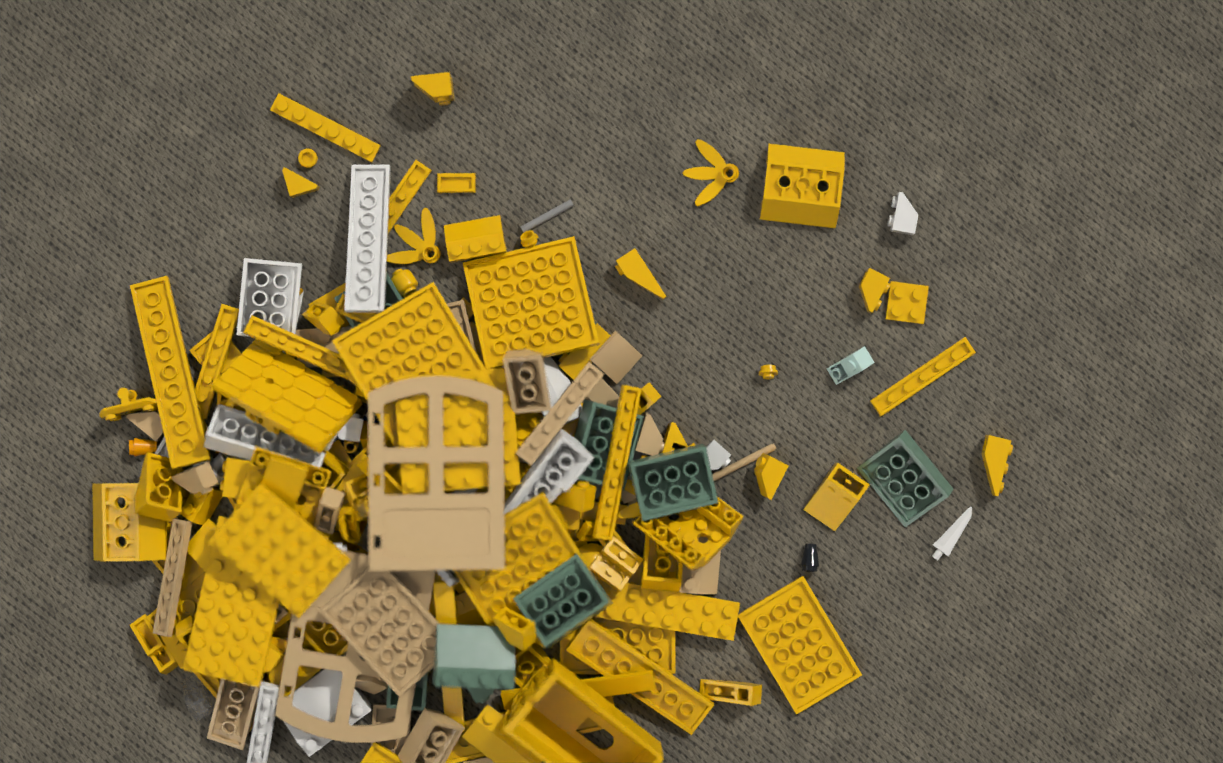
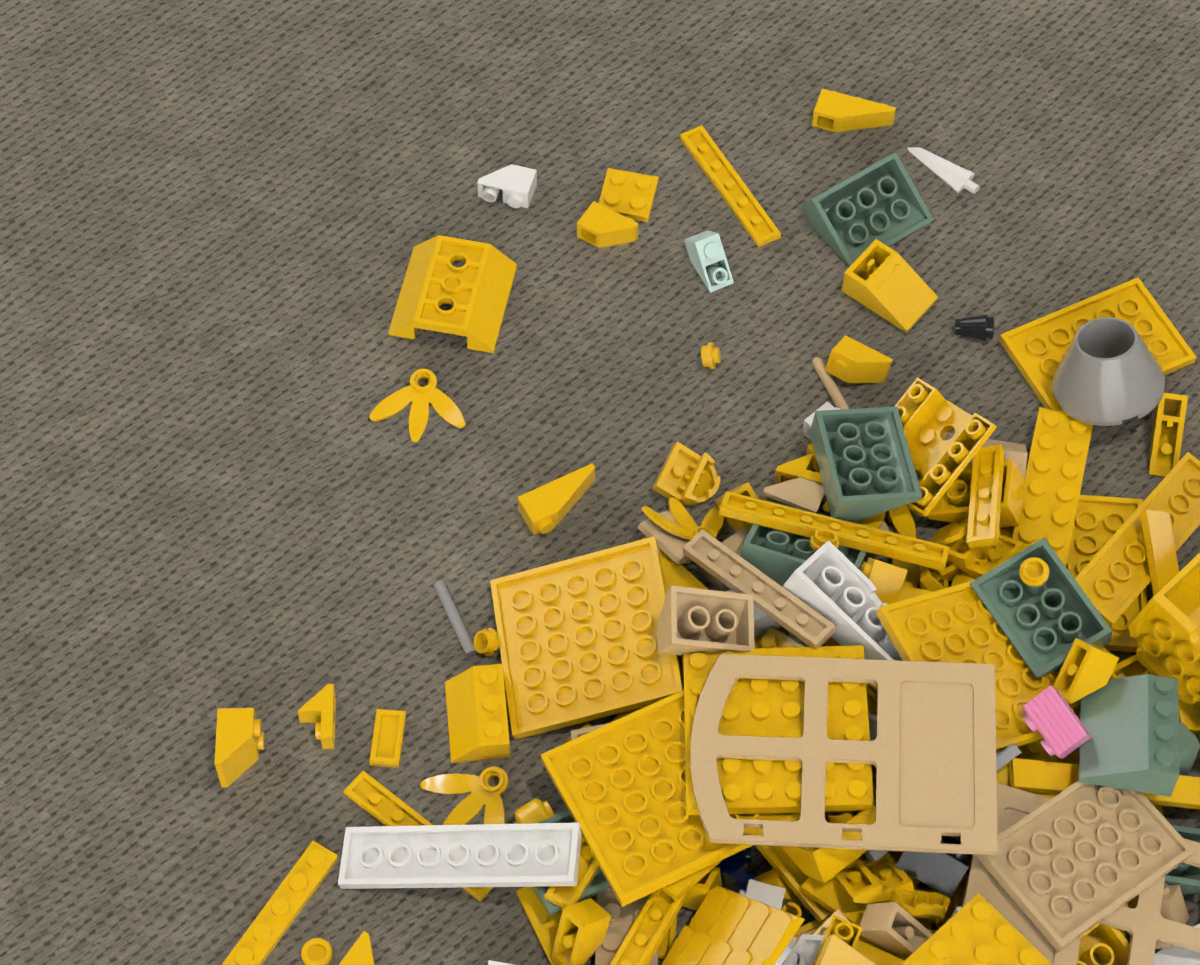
camera: 85 degrees left, 30 degrees down
(470, 139) = (322, 711): none -> yellow slope
(474, 609) = (1055, 722): none -> bright pink brick
(581, 595) = (1034, 572): none -> yellow plate
(601, 456) = (821, 537): none -> yellow plate
(617, 369) = (686, 525): none -> yellow plant
(630, 541) = (950, 532): none -> yellow piece
(647, 564) = (985, 497): none -> yellow plate
(667, 362) = (687, 476): none -> yellow slope
(740, 656) = (1108, 374): none -> light grey cone

